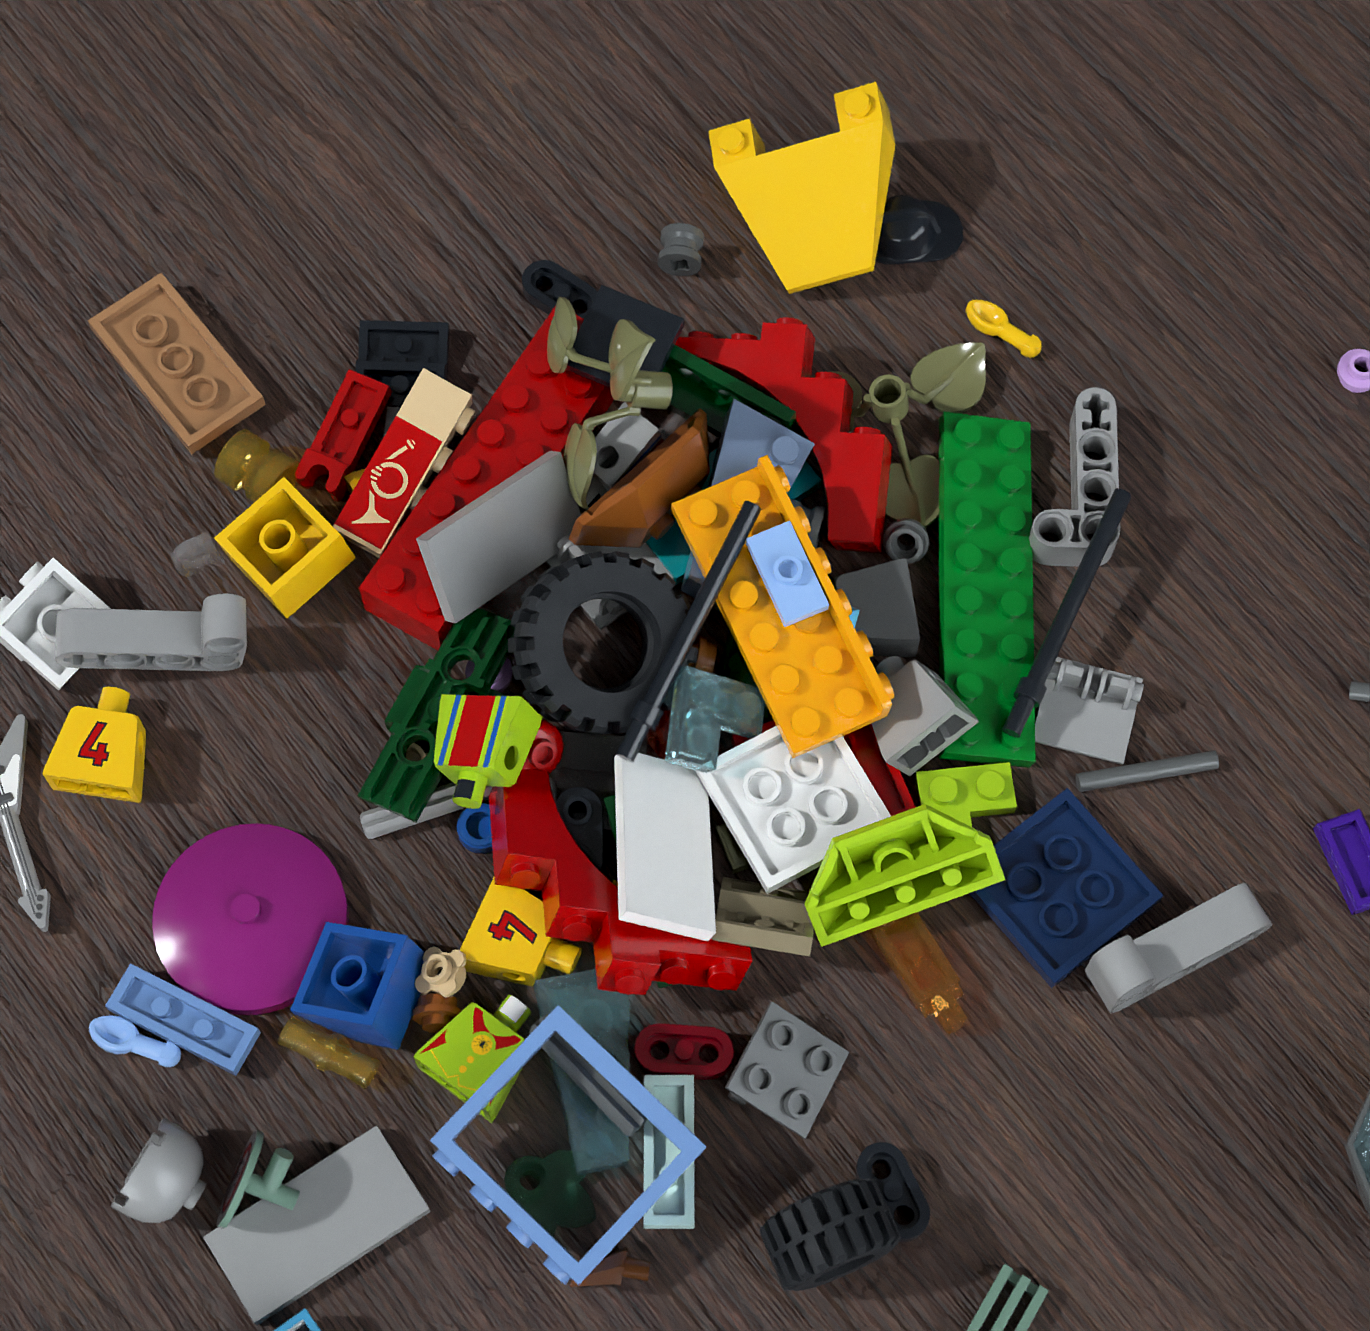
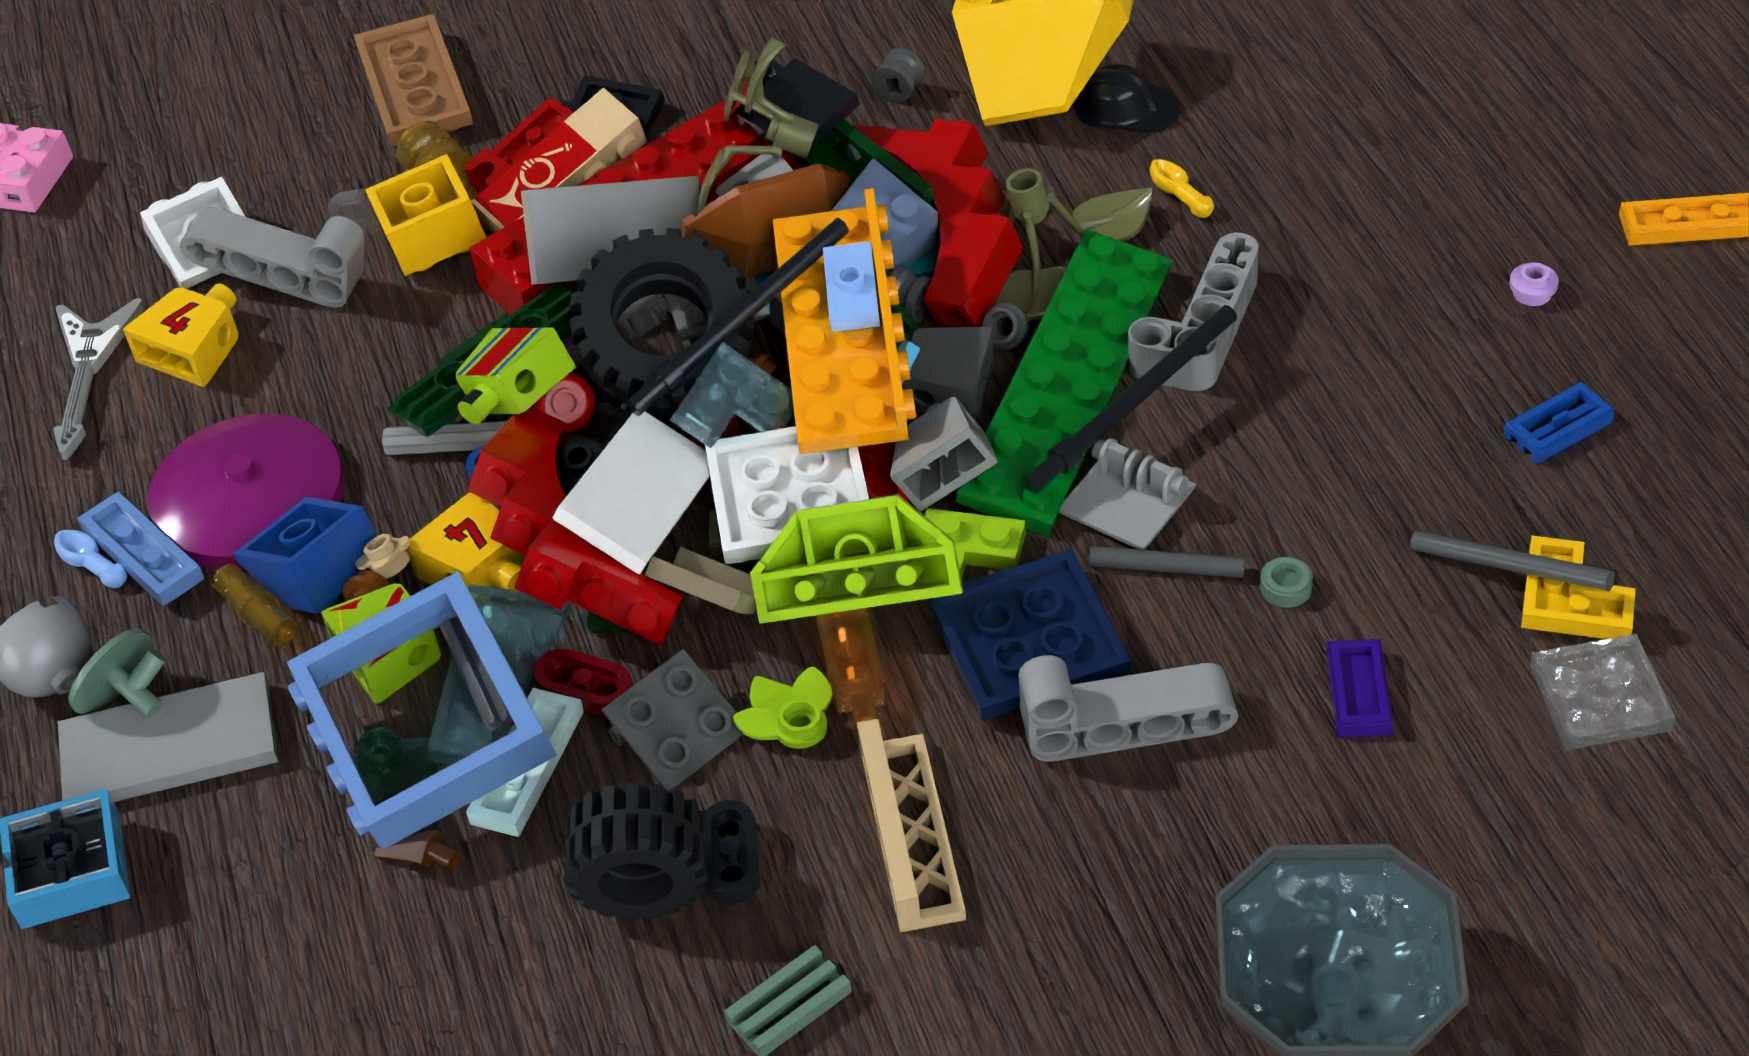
camera: 25 degrees right, 20 degrees down
(872, 1021) = (781, 710): none -> lime plate
(1024, 1123) = (892, 823): none -> tan fence
(1256, 765) = (1286, 582): none -> sand green tile

